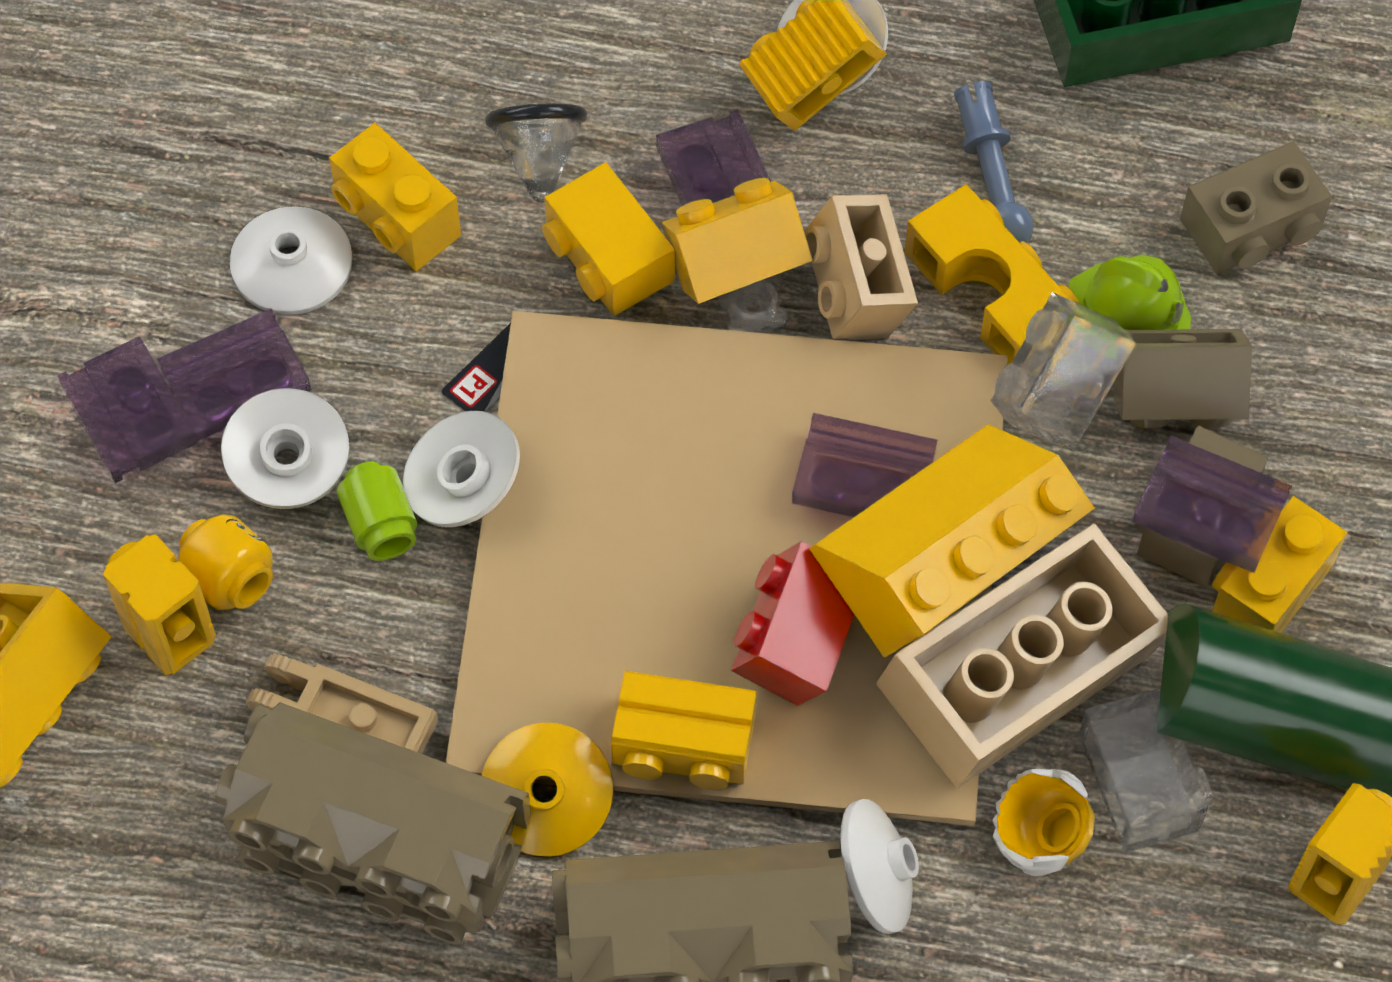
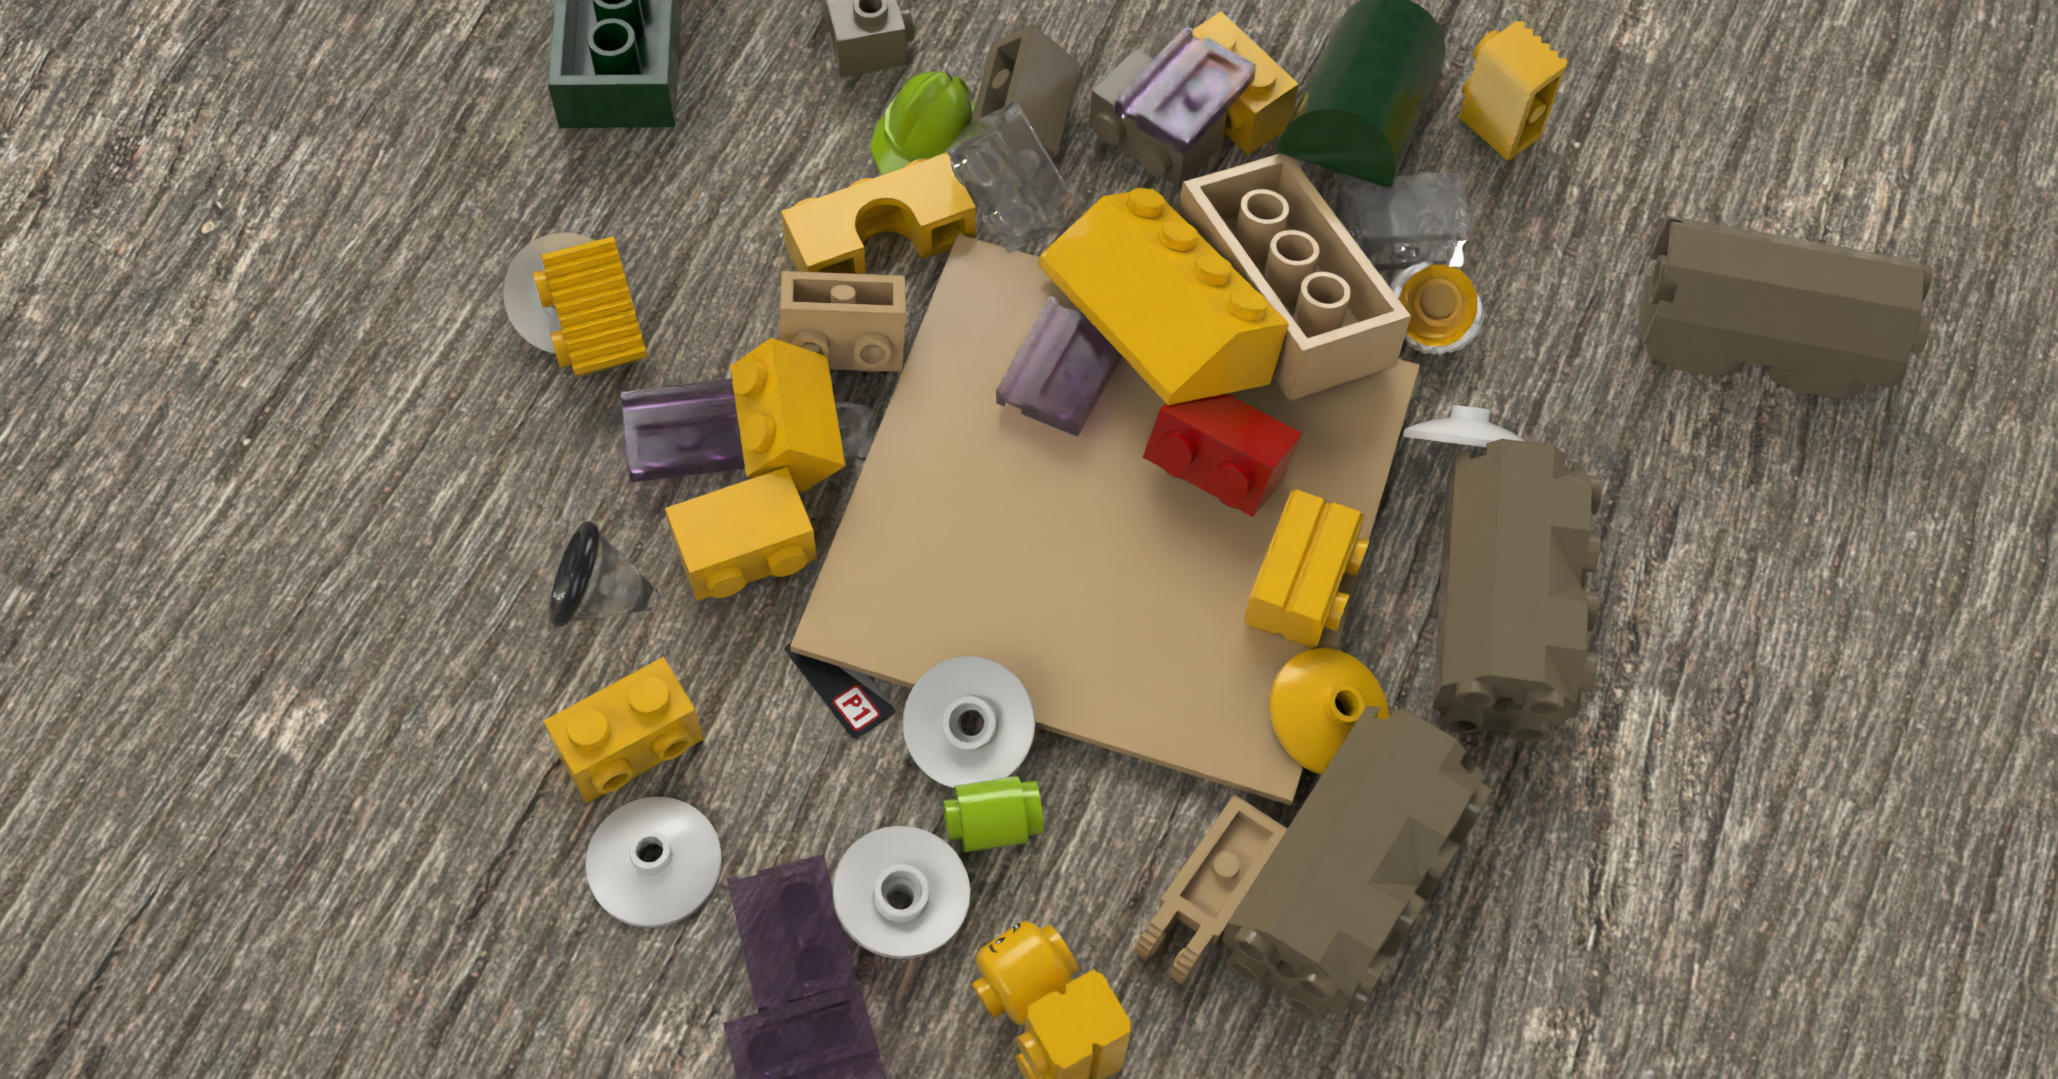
camera: 80 degrees left, 0 degrees up
(986, 138) = (713, 197): sand blue pin -> none

